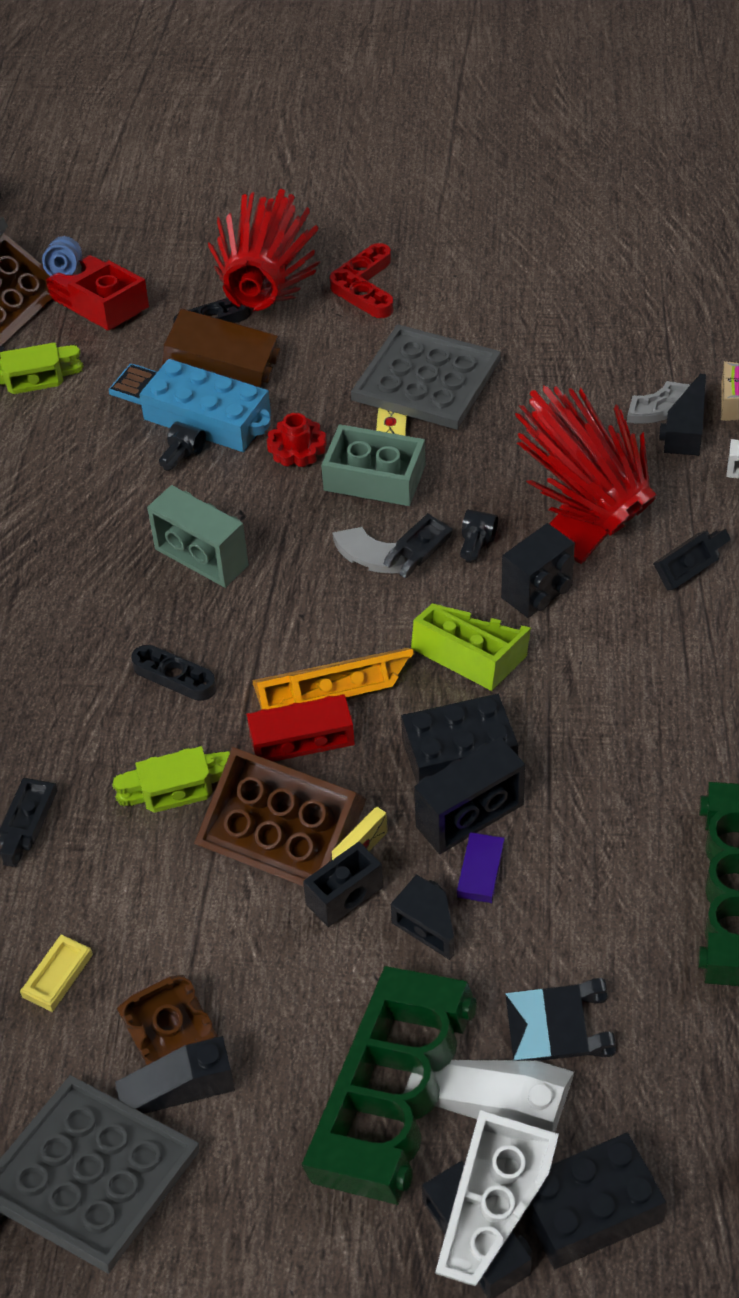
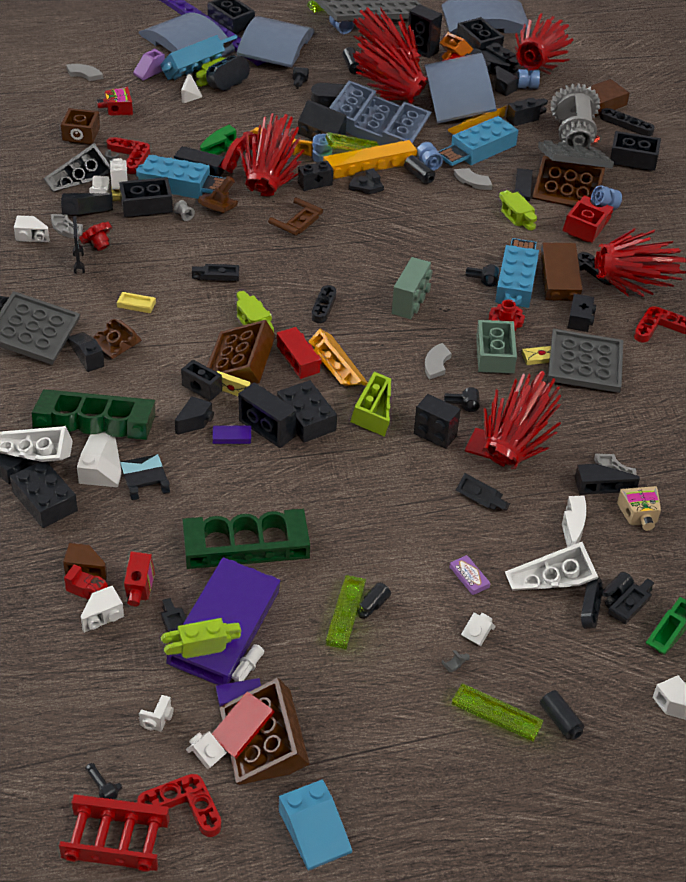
camera: 70 degrees right, 5 degrees down
(317, 355) = (582, 313): none -> black brick
(418, 544) = (443, 374): black hinge -> none

